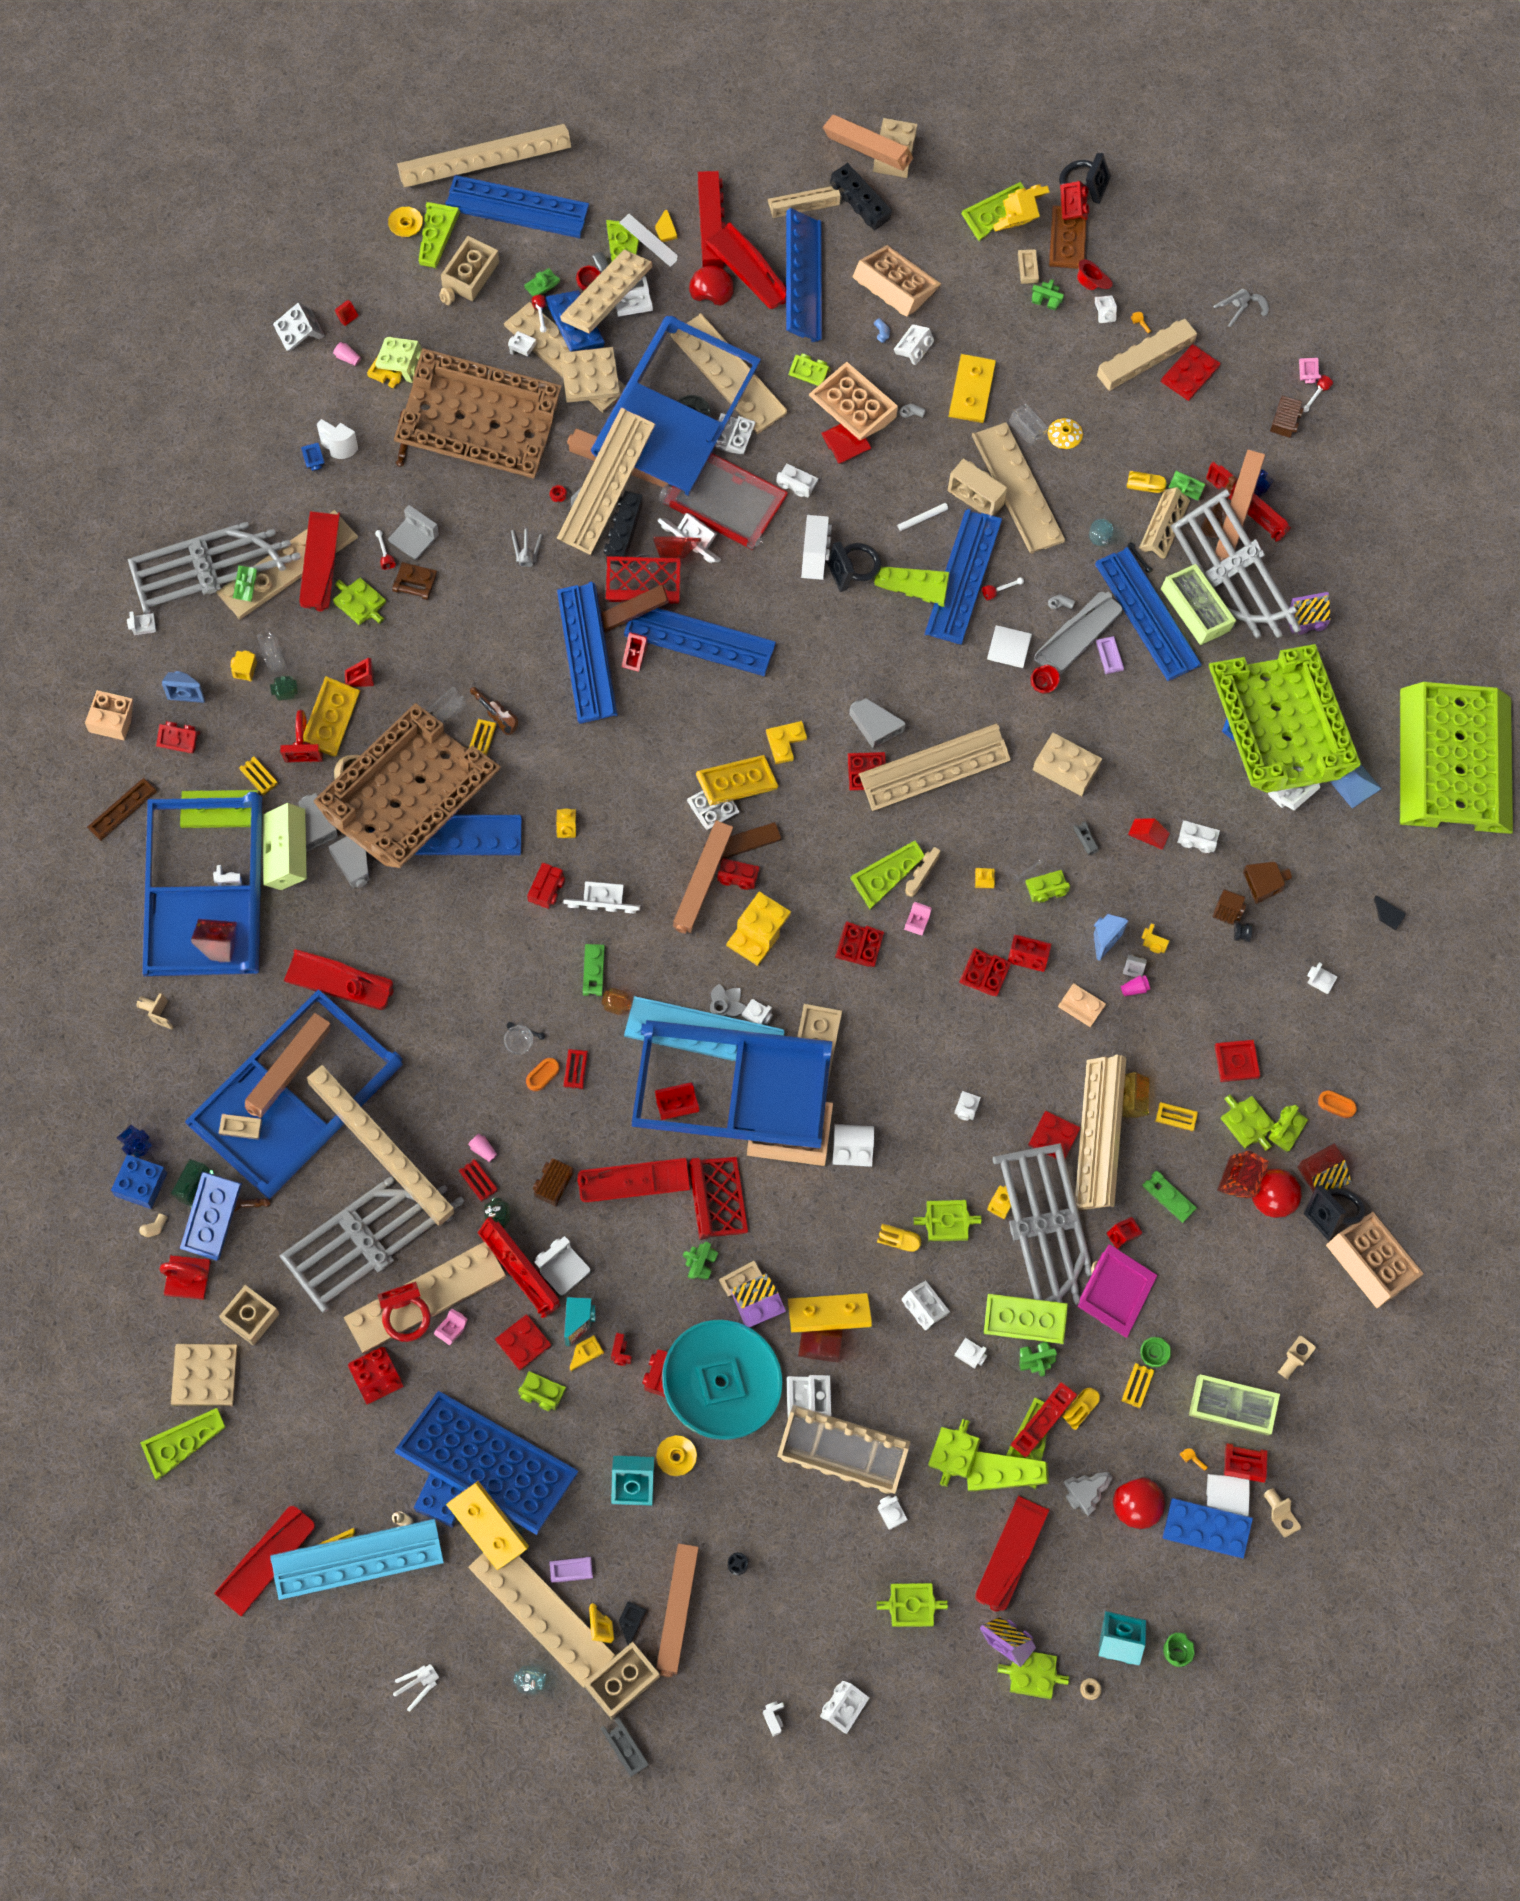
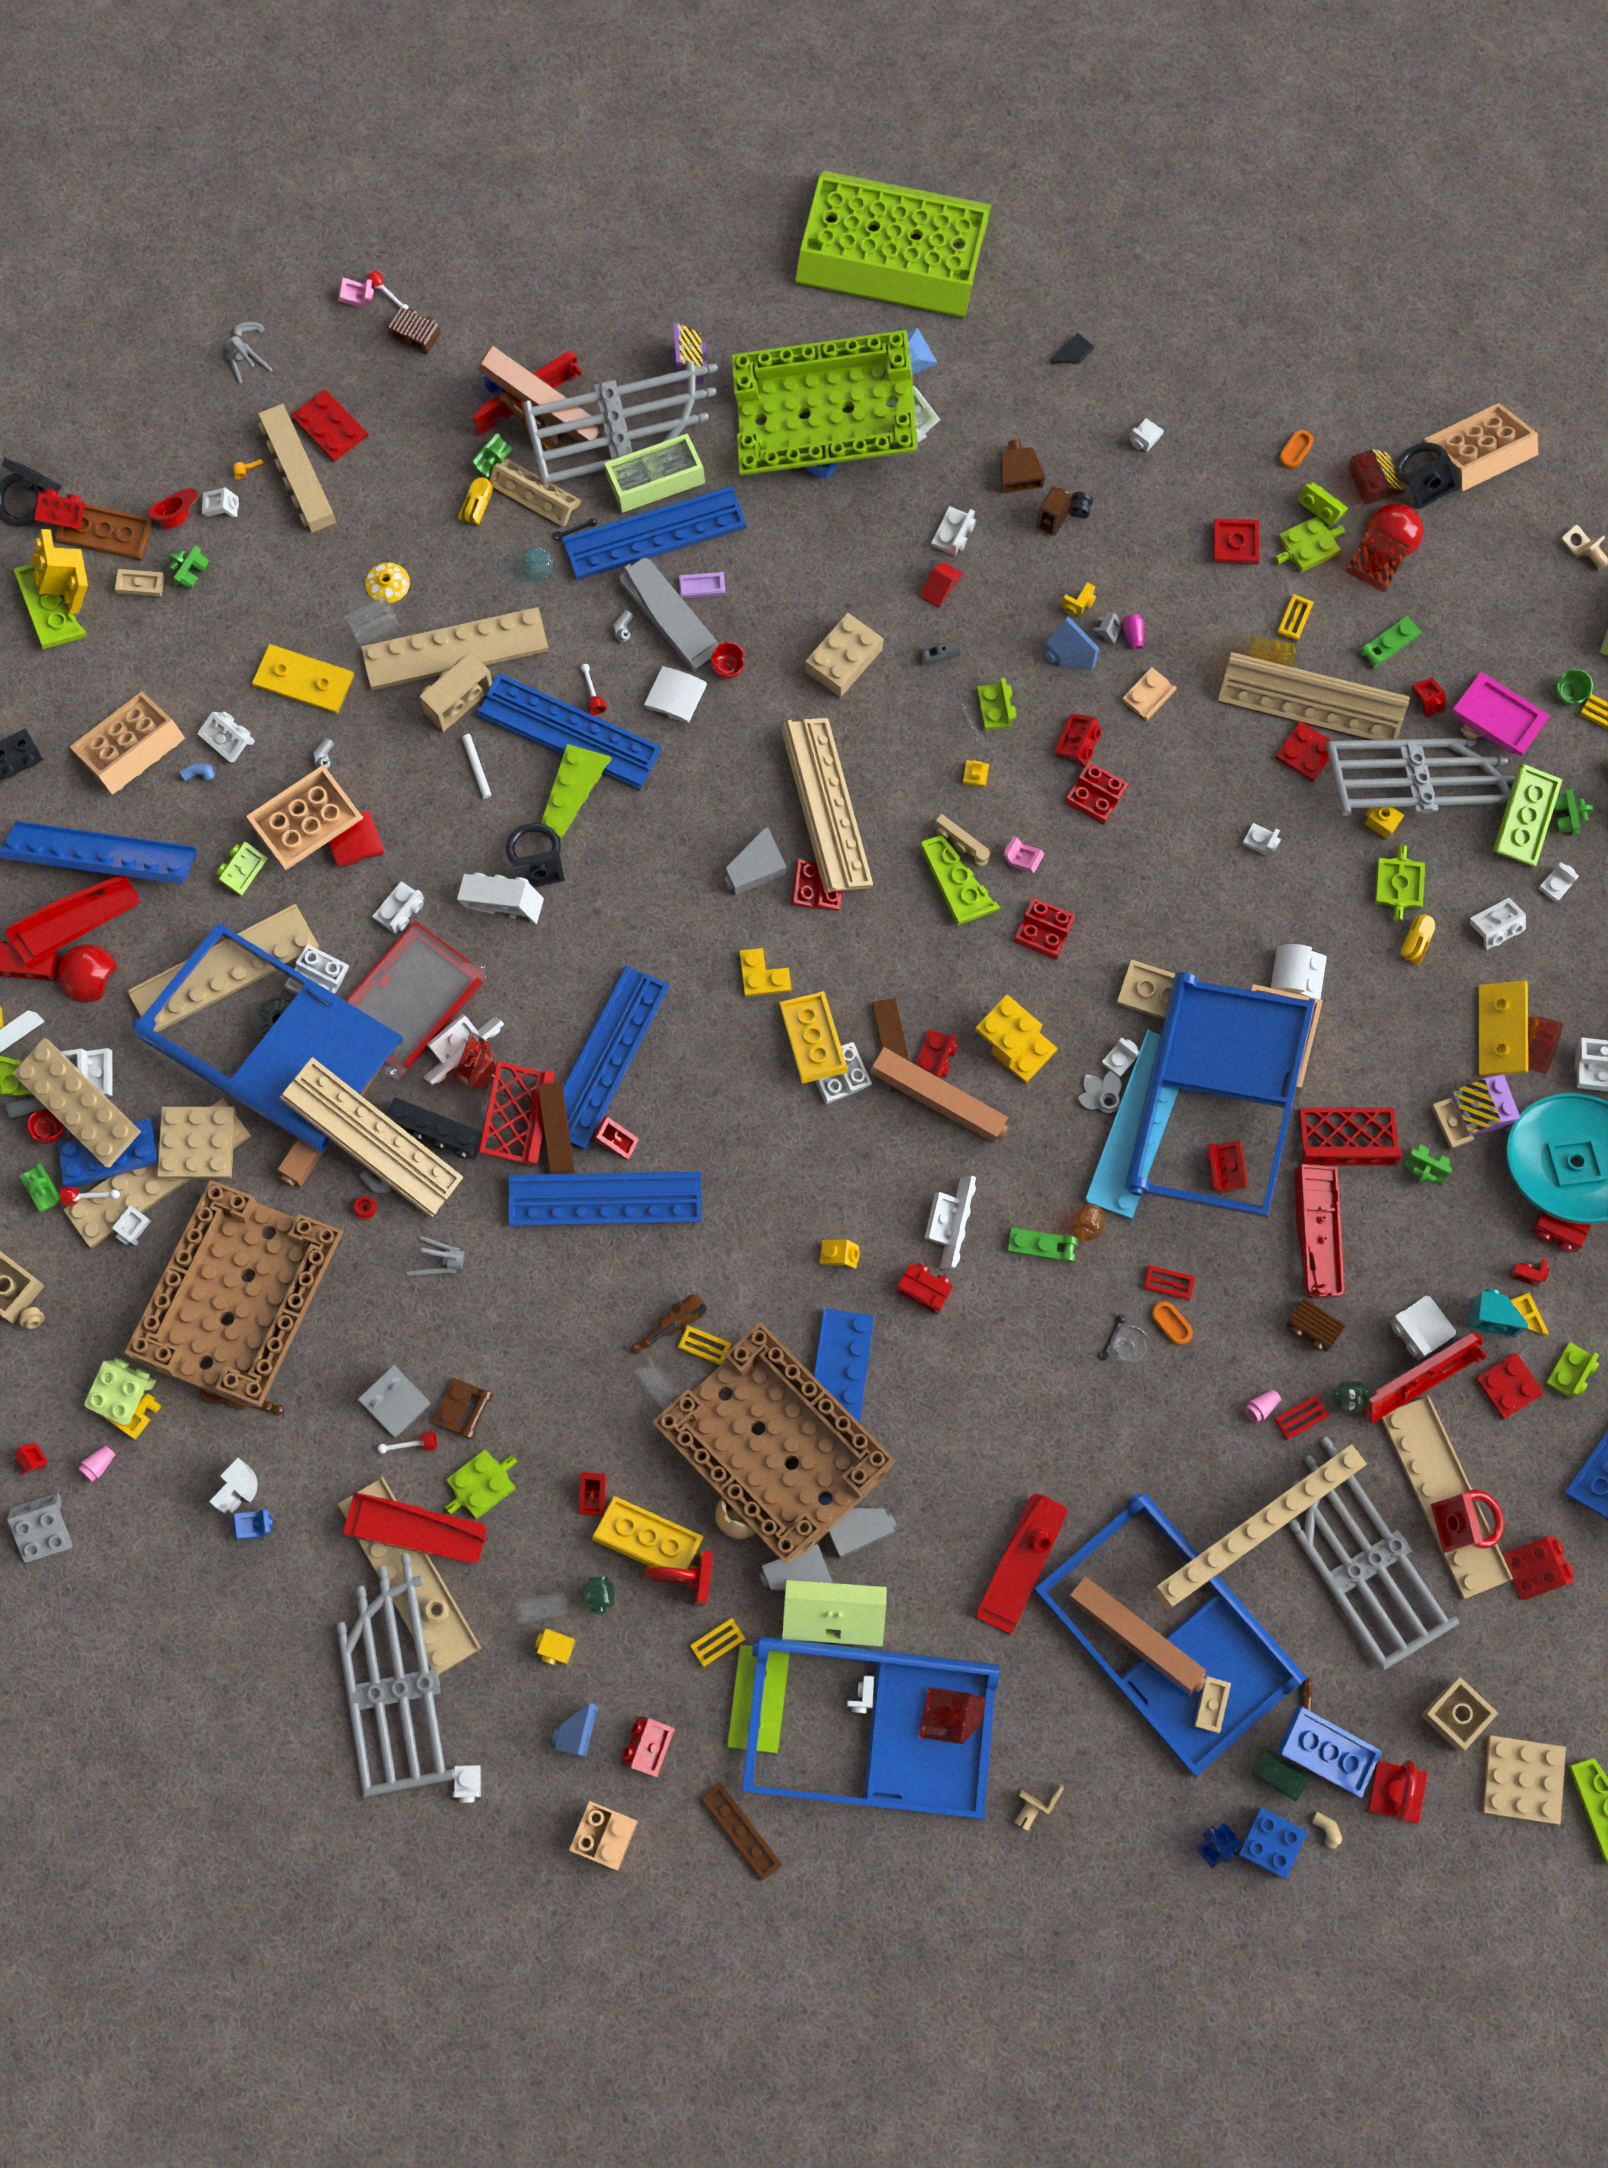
camera: 80 degrees left, 5 degrees up
(245, 583) = (440, 1631): bright green hips -> none
(451, 1327) = (1488, 1468): bright pink bracket -> none

